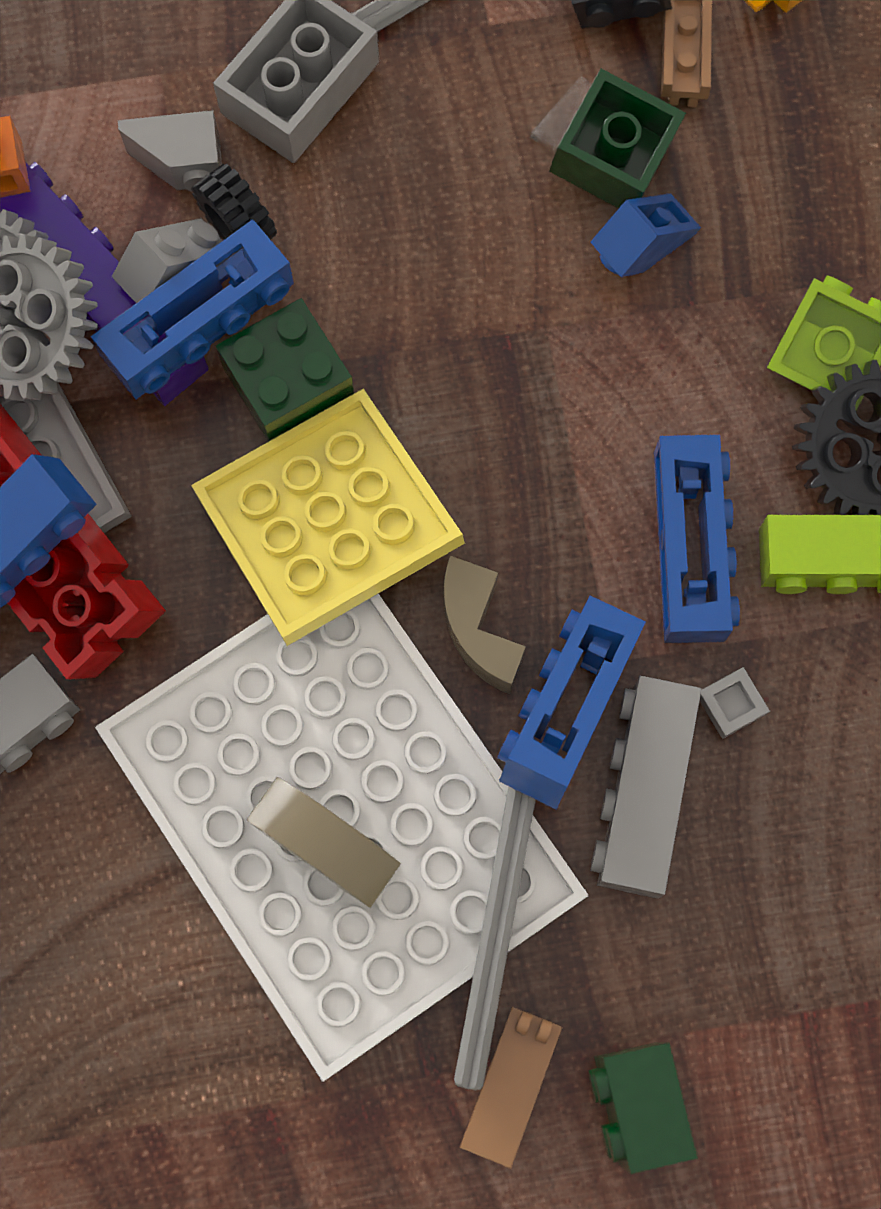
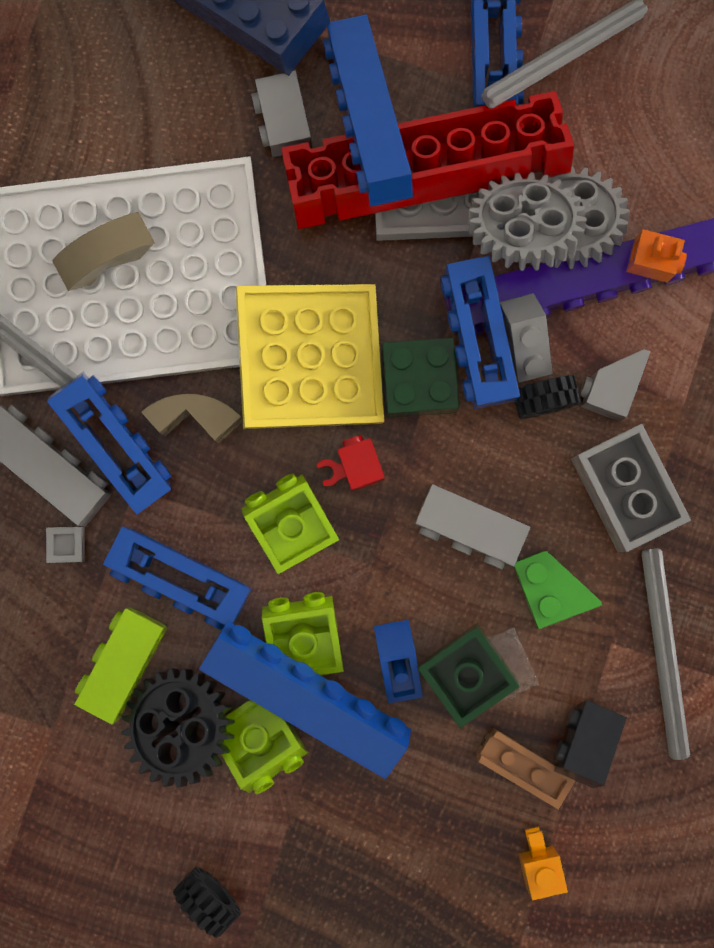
camera: 120 degrees right, 10 degrees up
(435, 393) = (358, 464): none -> red brick
(439, 229) = (471, 527): none -> light grey brick
(464, 112) = (552, 590): none -> bright green wing
(549, 439) = (288, 522): none -> lime plate
(680, 354) = (305, 631): none -> lime plate
(753, 308) = (306, 699): none -> blue brick

